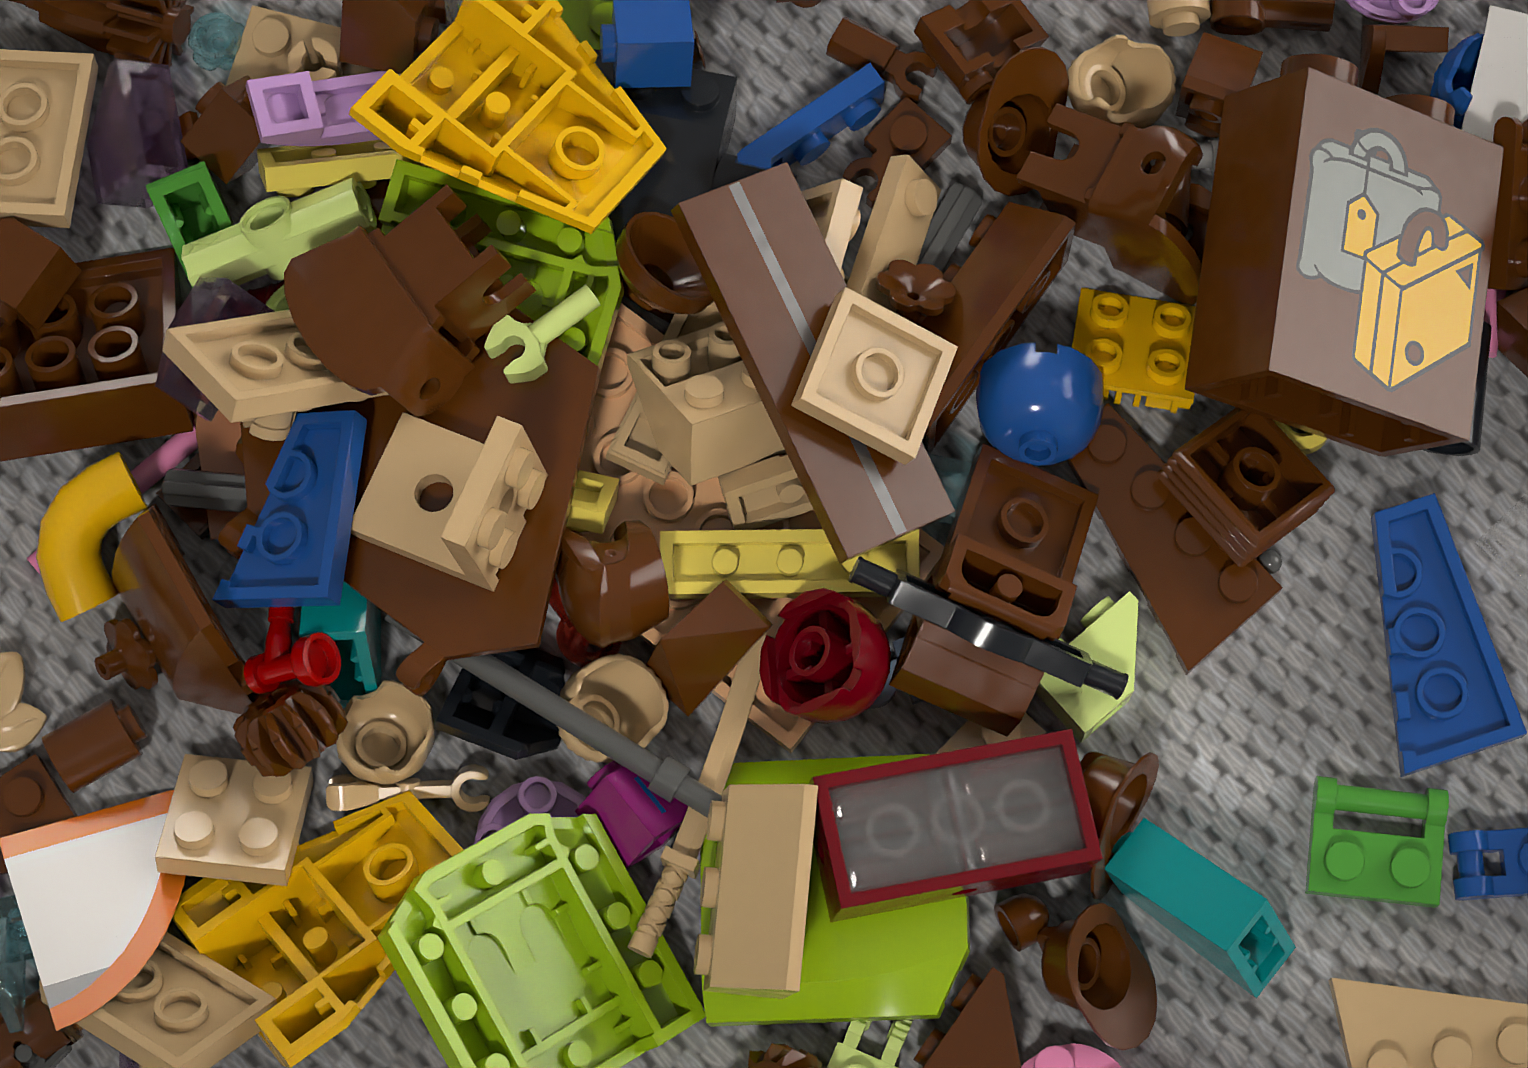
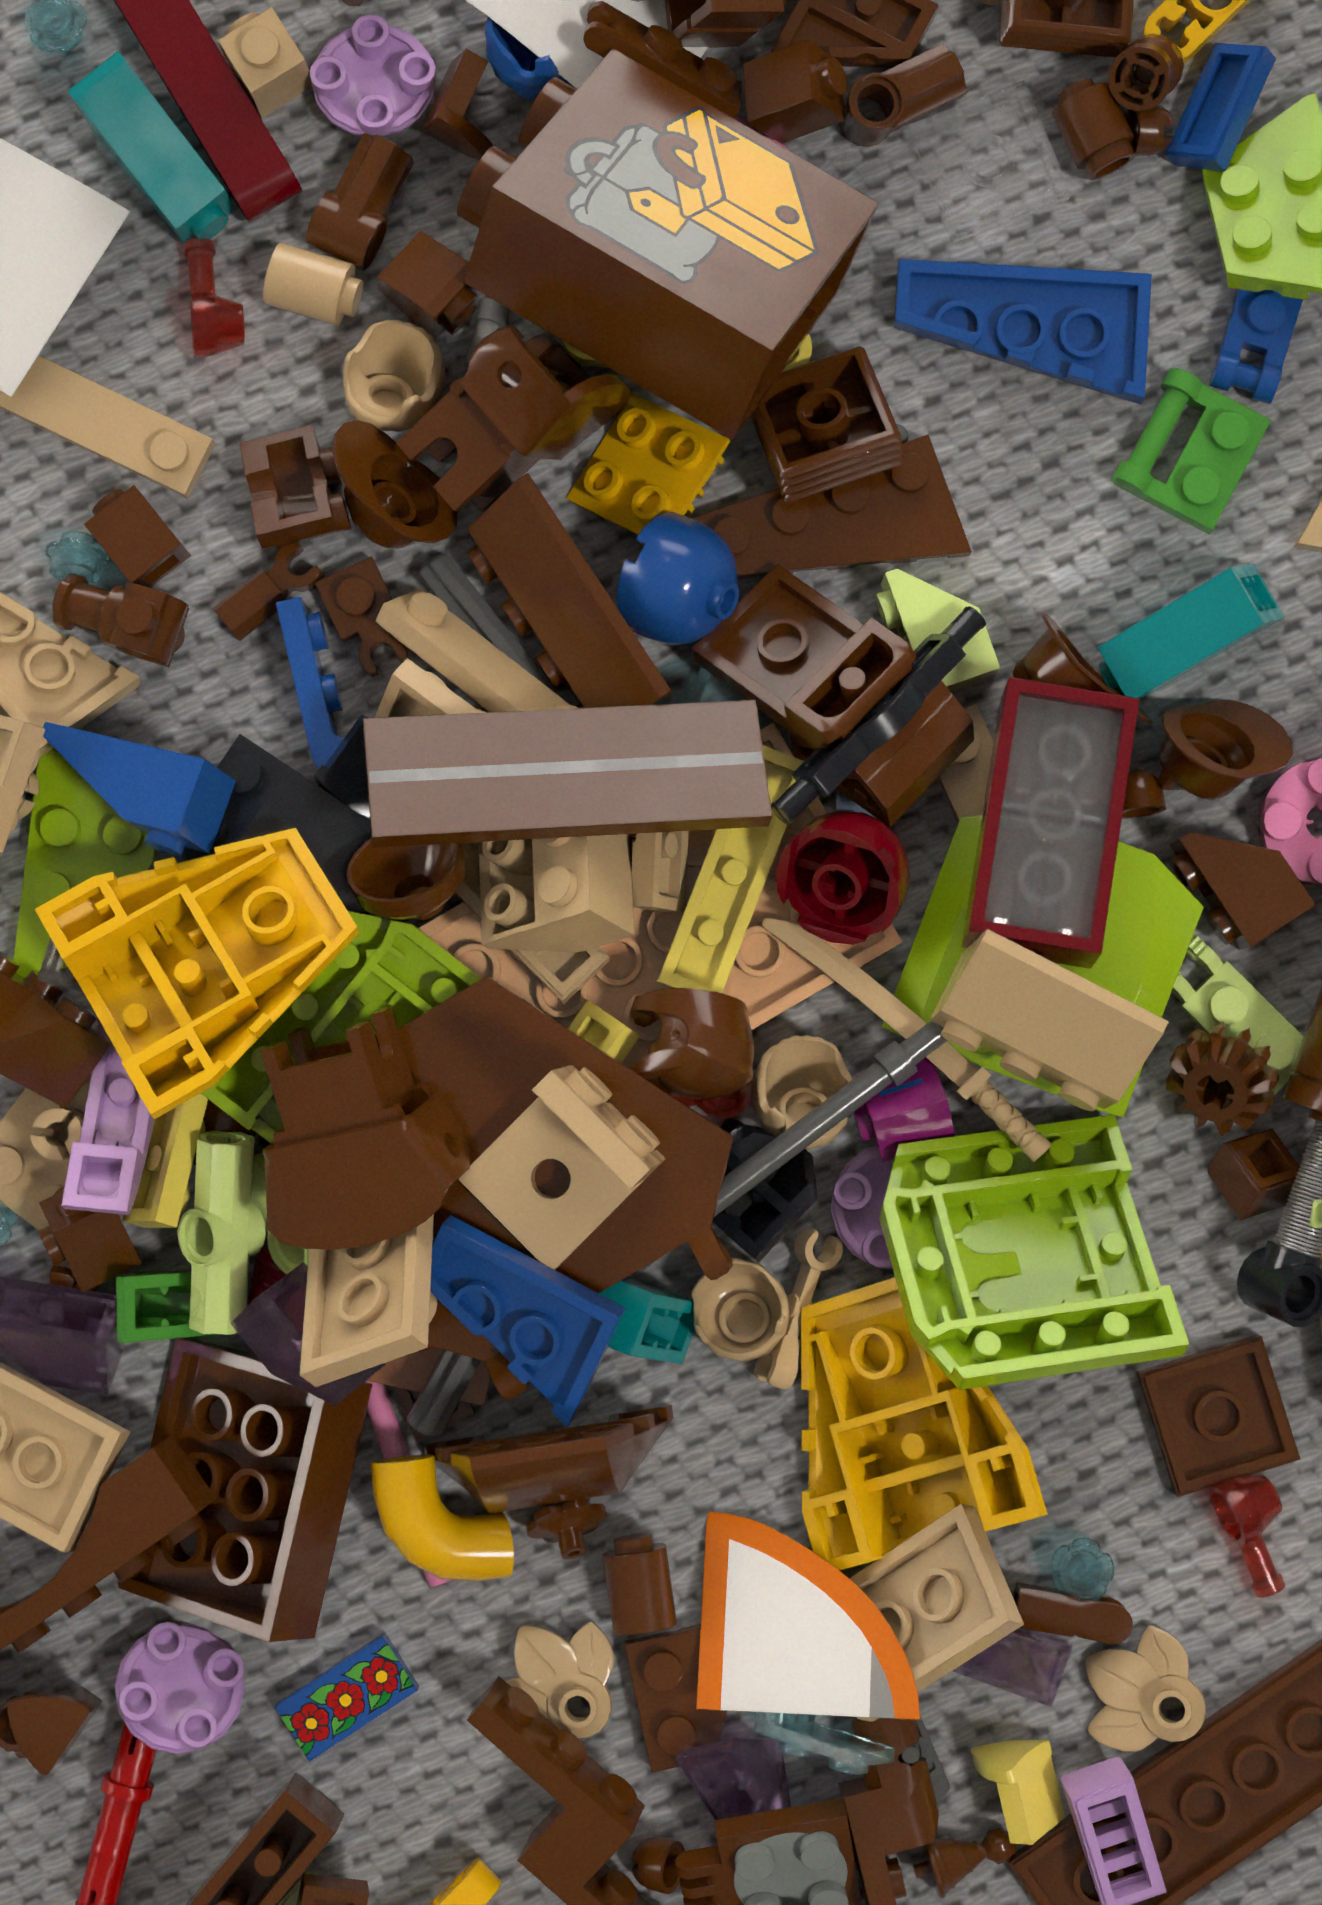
camera: 65 degrees left, 10 degrees up
(233, 821) = (765, 1480): tan plate -> none
(289, 727) = (703, 1396): reddish brown gear -> none
(311, 660) = (660, 1353): red piece -> none
(537, 335) = (431, 1019): yellowish green bar -> none
(707, 646) = (782, 979): reddish brown slope -> none
(874, 376) = (608, 720): tan plate -> none
(915, 289) = (522, 649): reddish brown plant -> none

